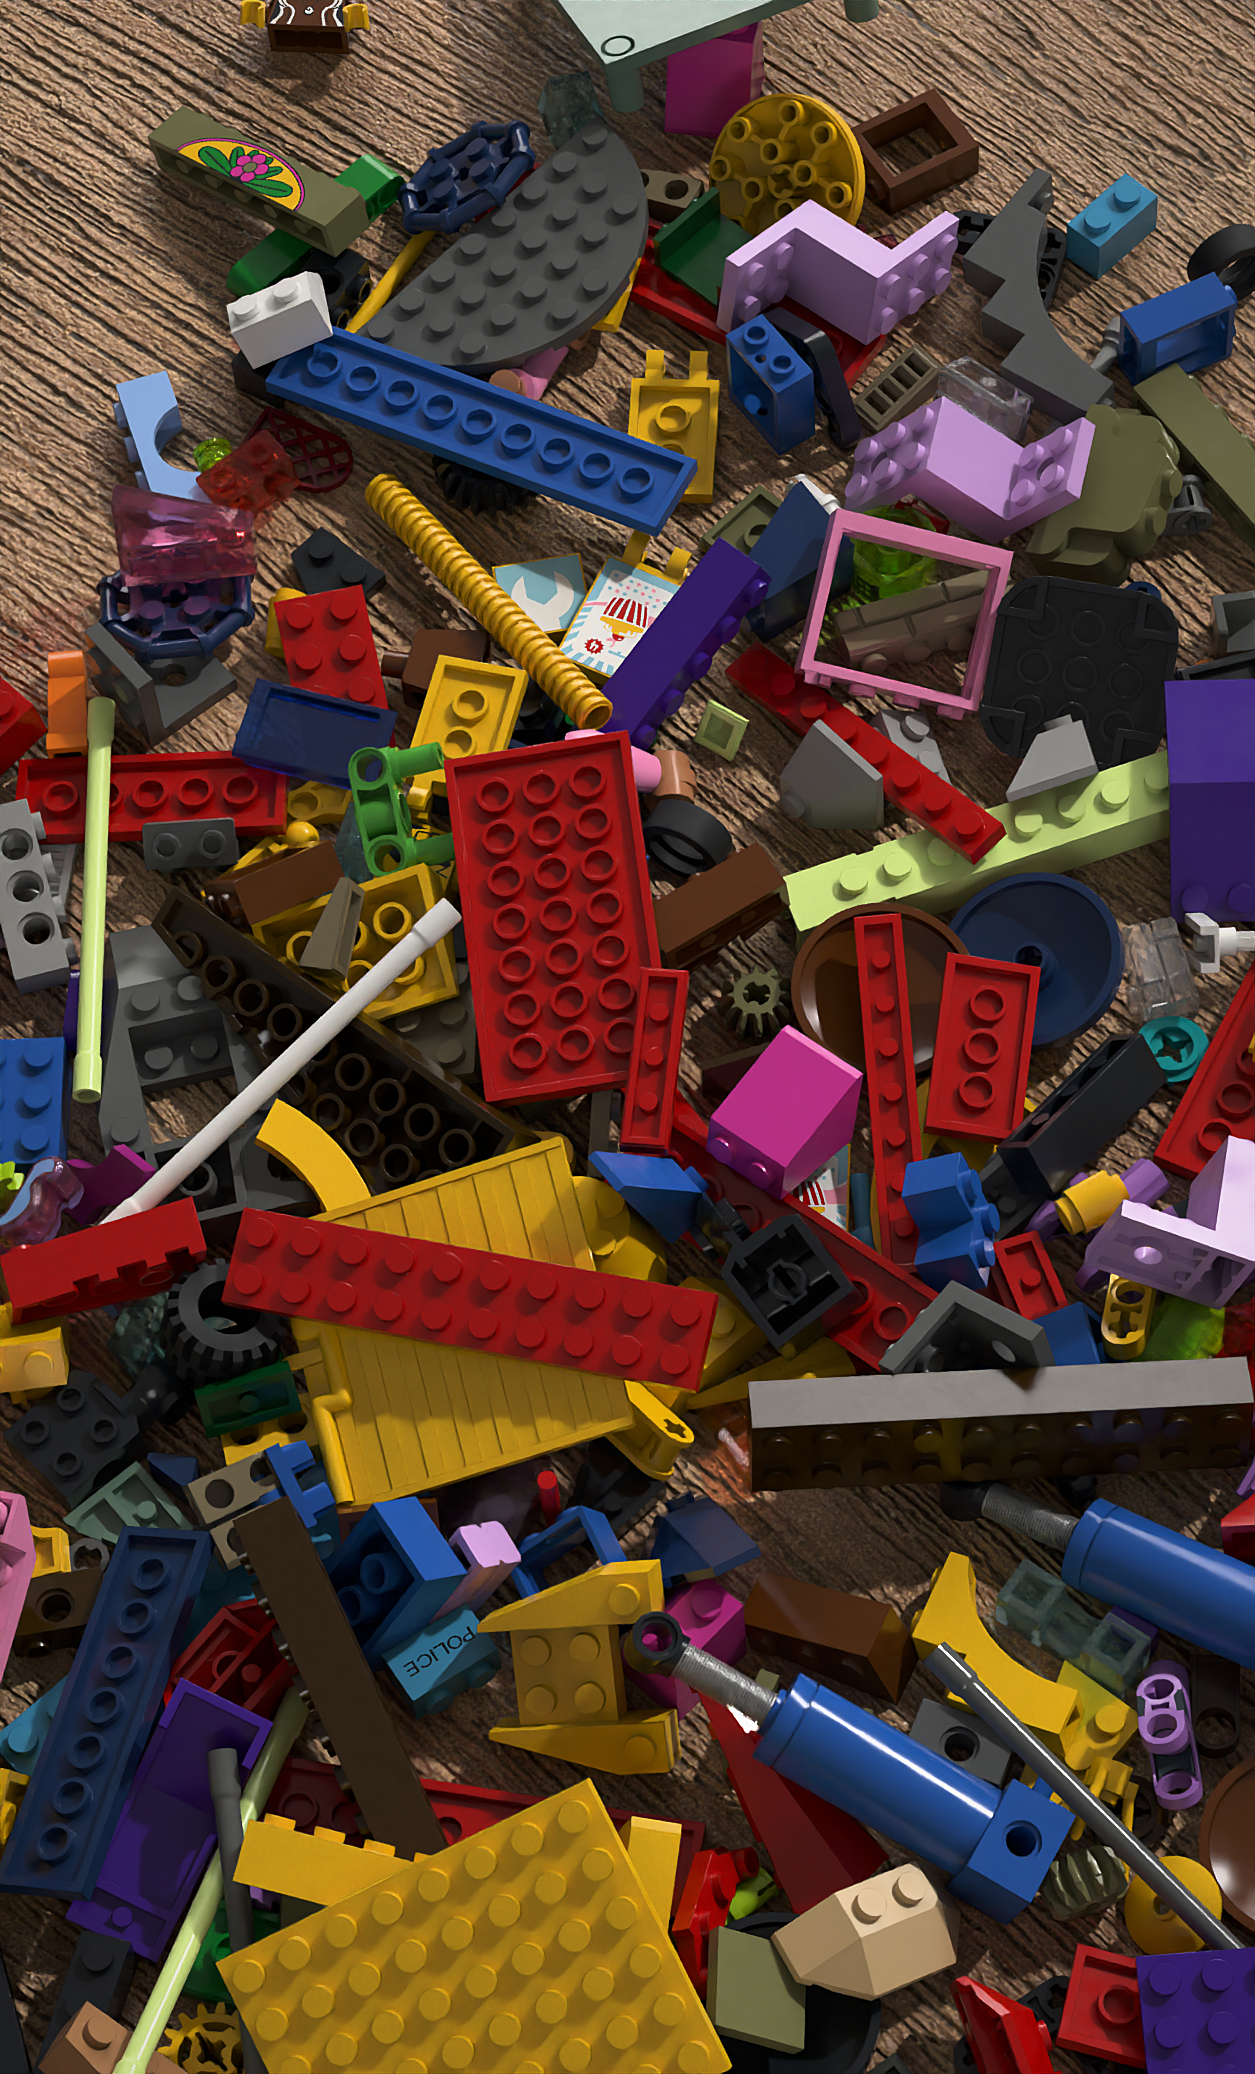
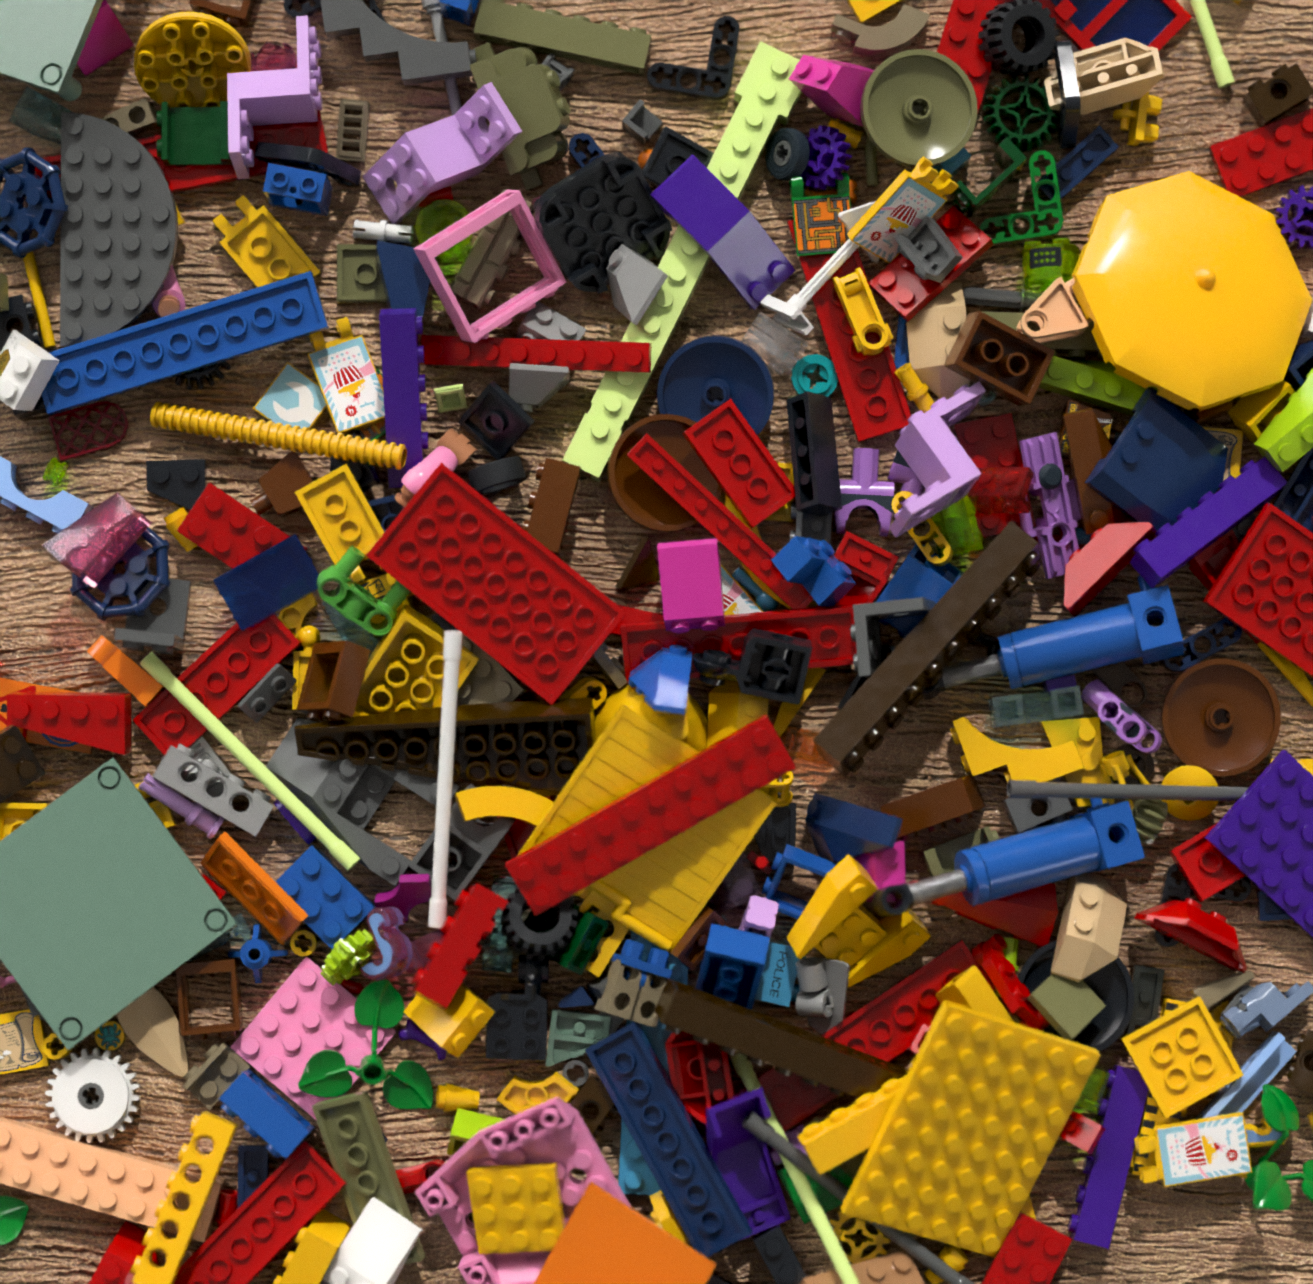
camera: 50 degrees left, 25 degrees up
(251, 476) = (89, 471): clear red bracket -> none
(333, 939) = (398, 689): dark tan slope -> none
(469, 1720) = (822, 991): none -> light grey panel
(654, 1061) = (614, 617): red tile -> none
(748, 785) = (496, 421): none -> black tile
(755, 1004) = (613, 536): olive gear -> none
(986, 397) = (406, 104): clear brick -> none
(1090, 1202) = (862, 496): yellow brick -> none

